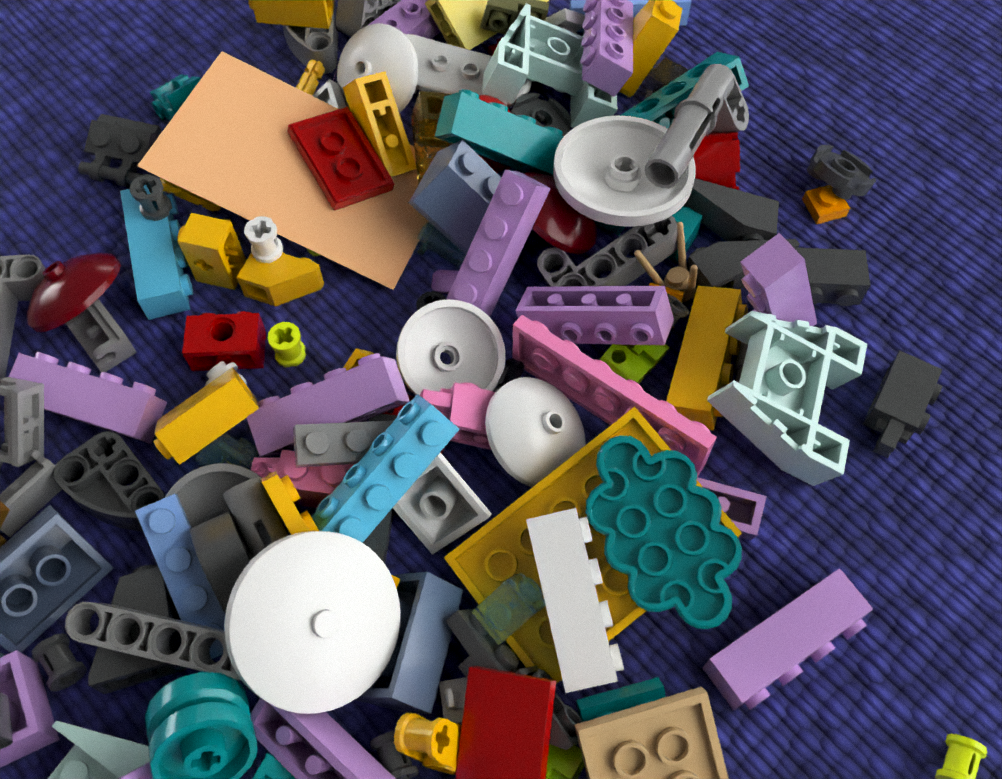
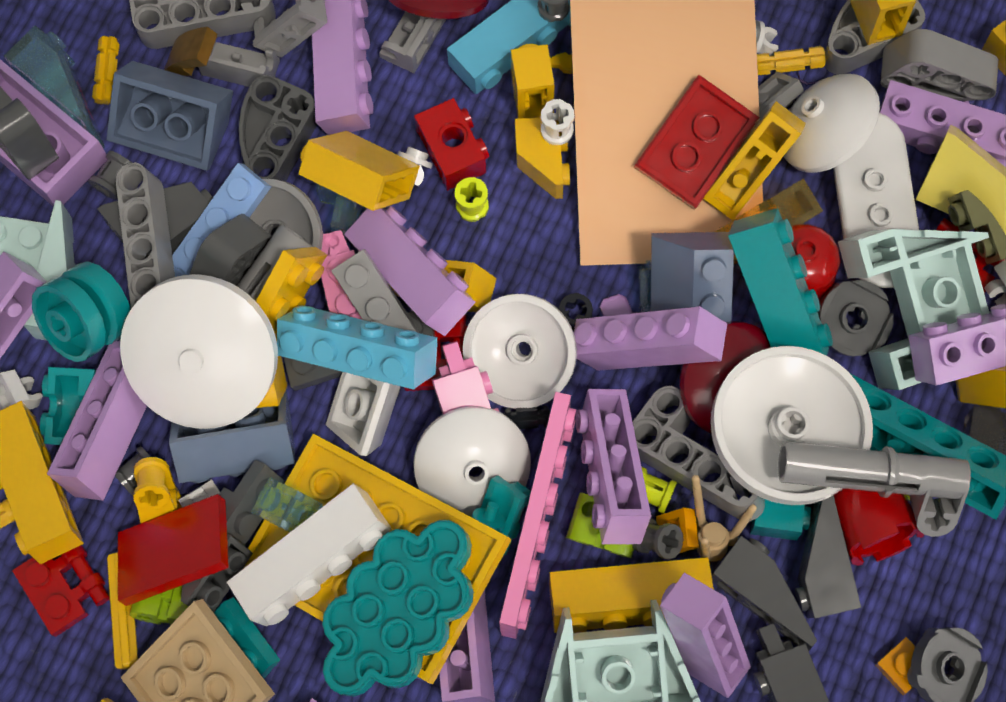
camera: 70 degrees right, 10 degrees up
(589, 414) = (503, 507): none -> teal hips

